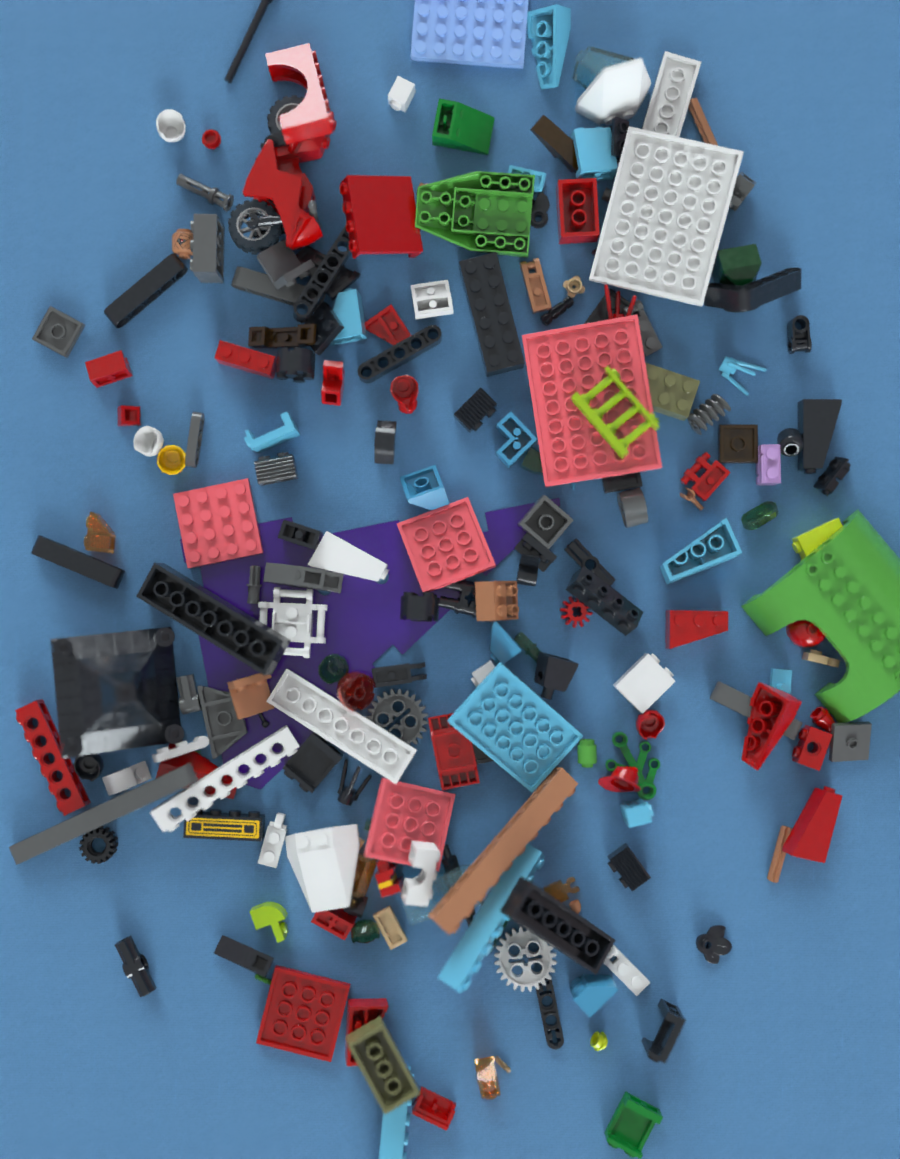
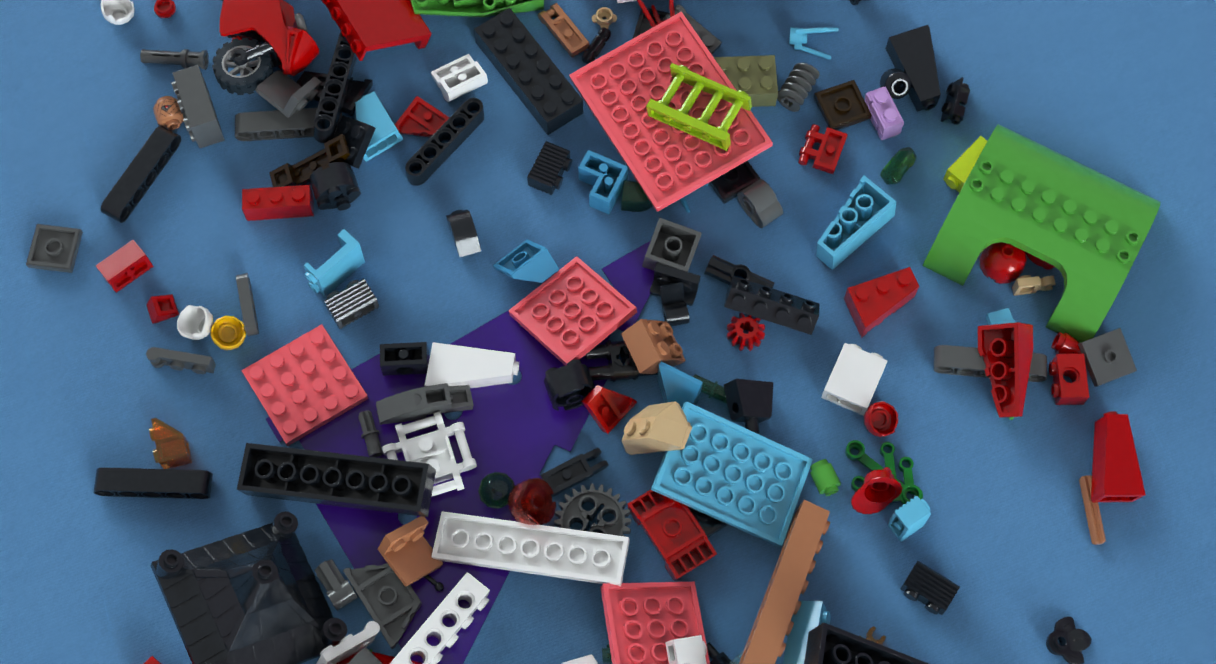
camera: 20 degrees left, 20 degrees down
(127, 468) = (179, 360): none -> dark grey plate
(312, 762) = (512, 607): black panel -> none
(332, 382) = (382, 191): red brick -> none
(347, 793) = (567, 630): black plant -> none
(405, 392) = (466, 175): red hair -> none
(443, 634) = (607, 407): none -> red wing
(472, 675) = (657, 429): none -> tan wedge
(691, 497) = (816, 172): nougat hand -> none

